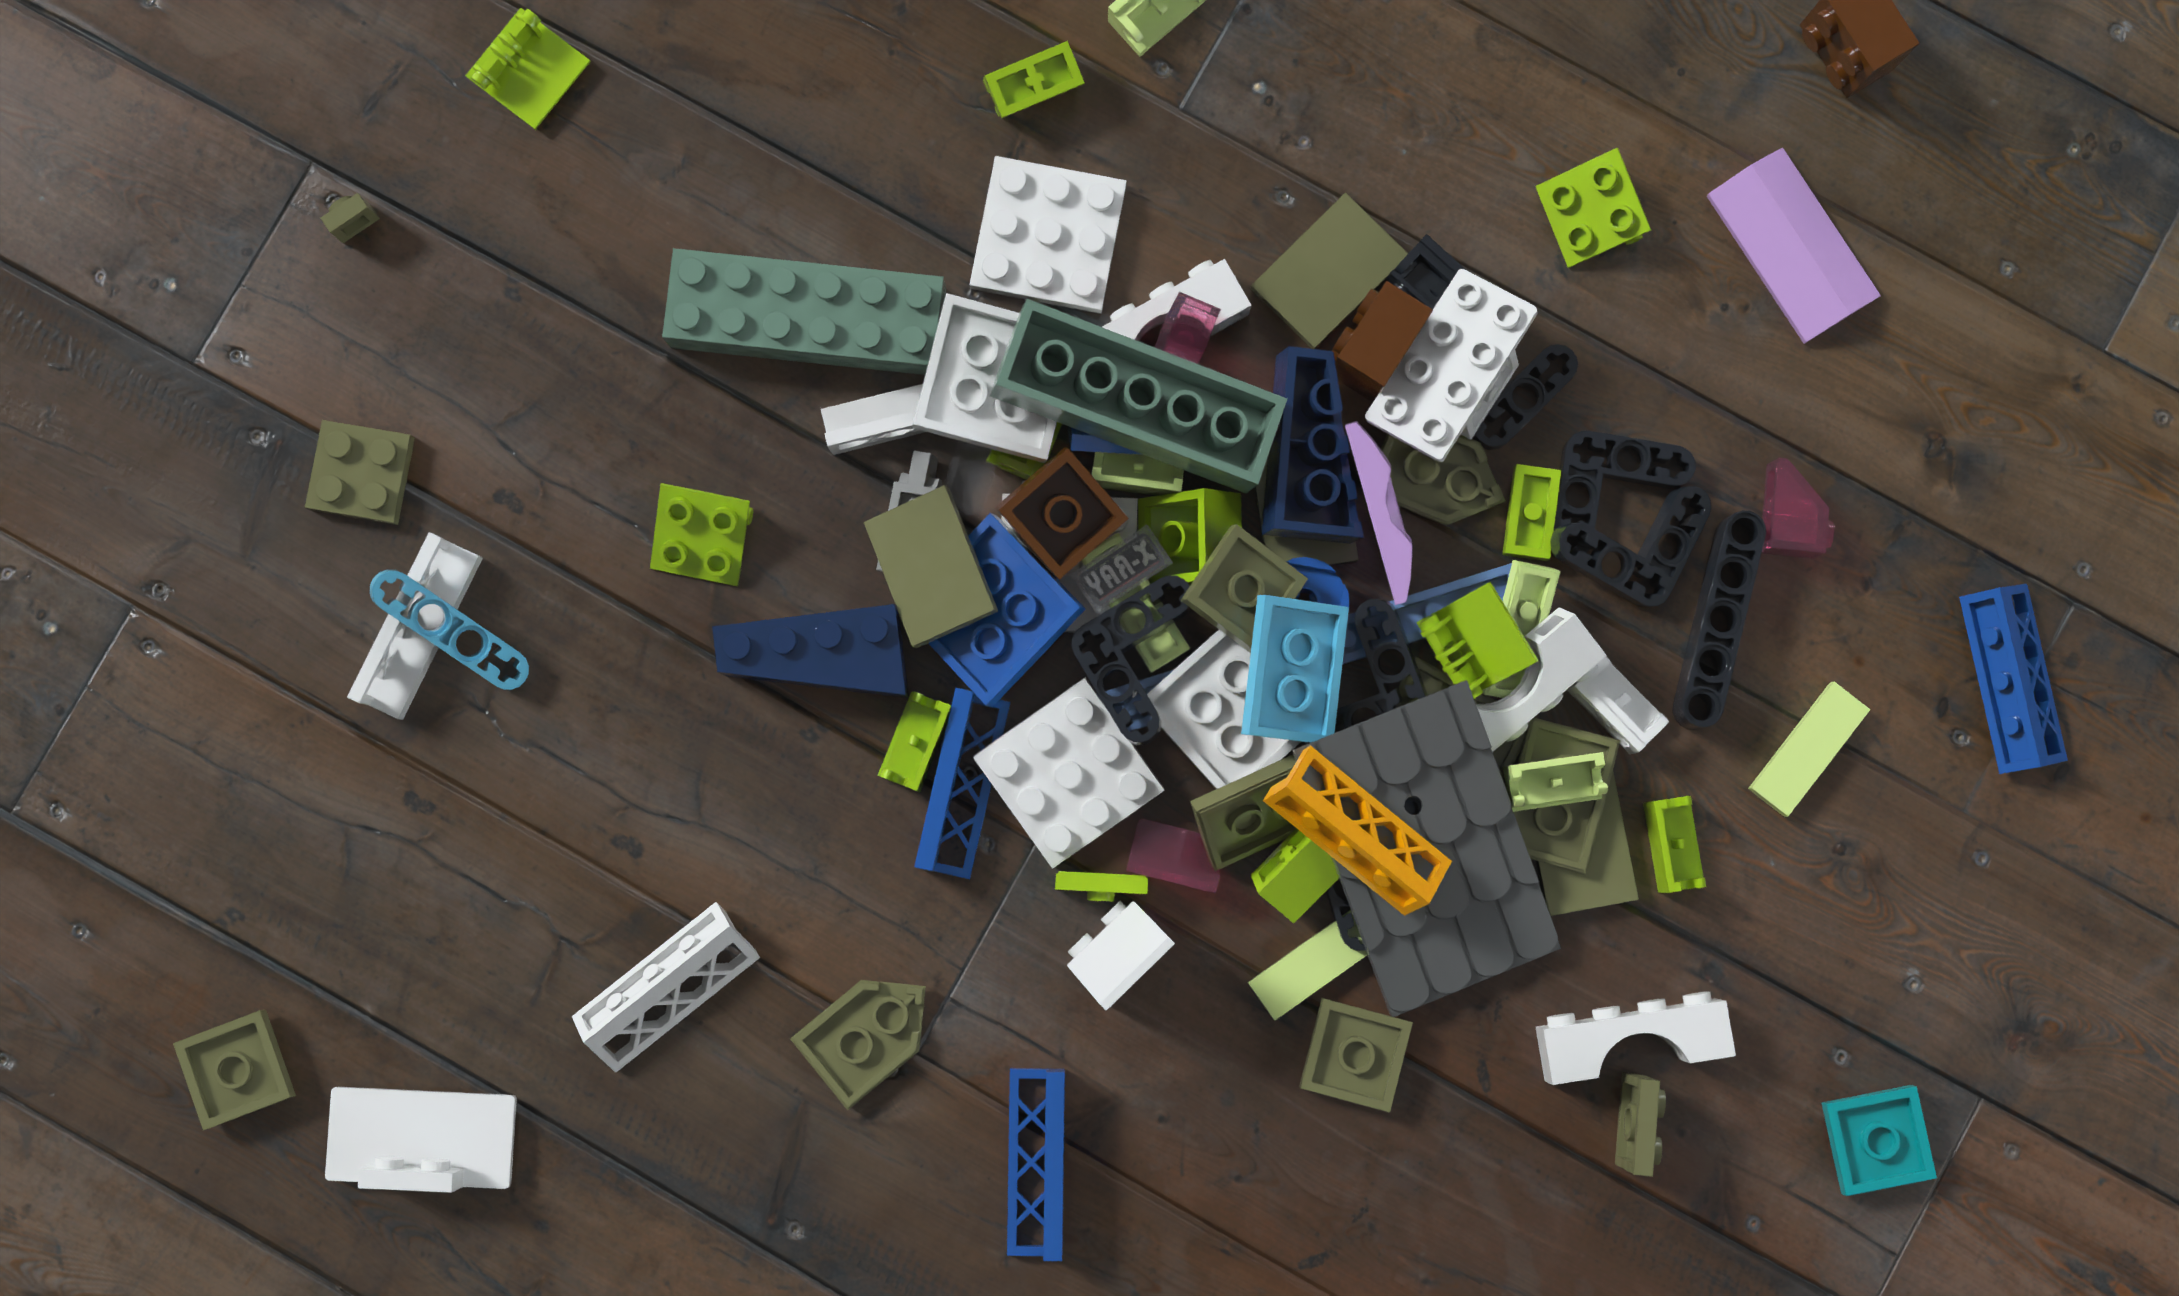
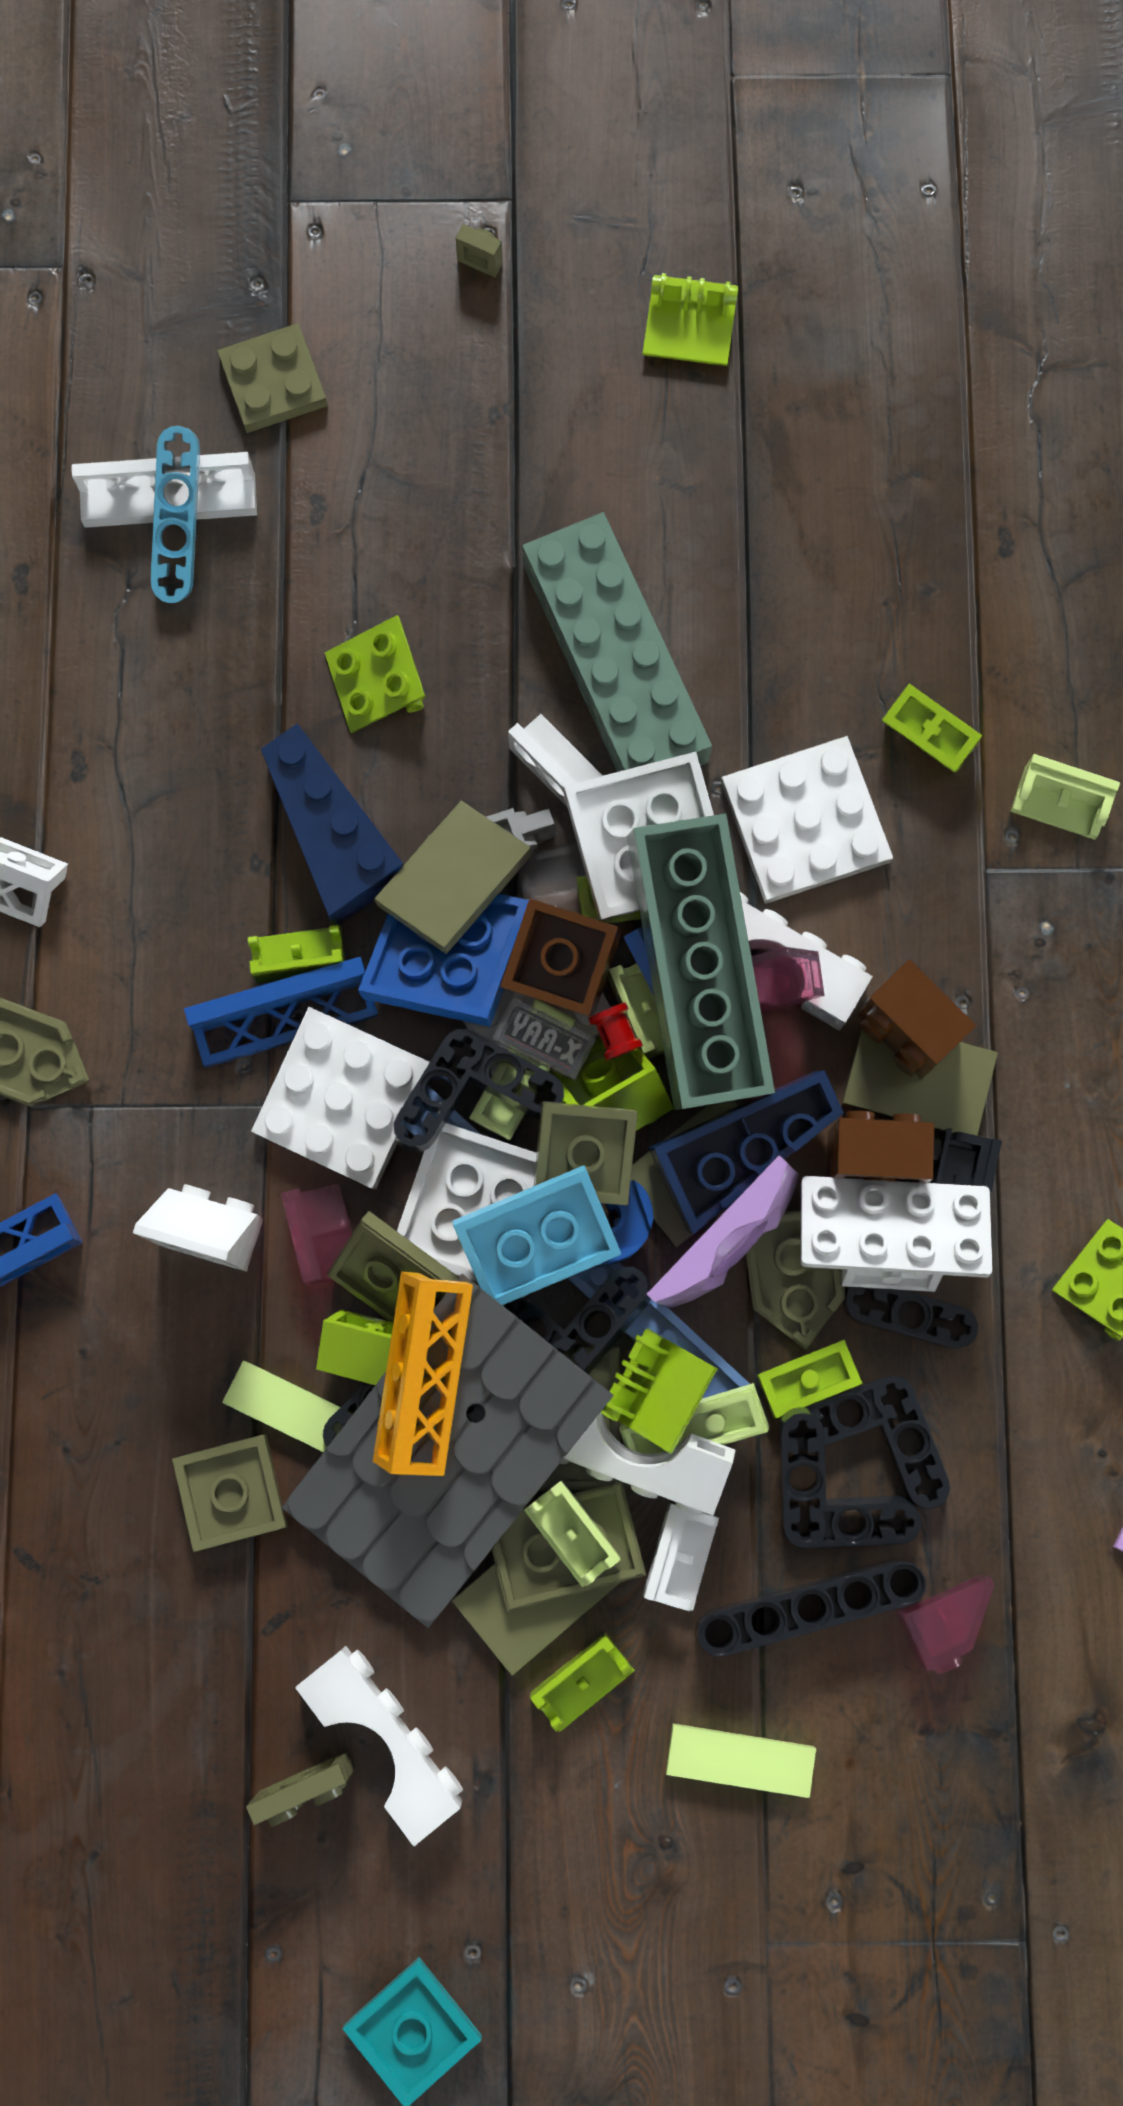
camera: 60 degrees right, 5 degrees down
(1101, 885) = (258, 1180): lime plate -> none
(1151, 504) = (615, 1031): none -> red bush
(1287, 245) = (914, 1020): none -> reddish brown brick
(2010, 679) = (913, 1918): blue fence -> none

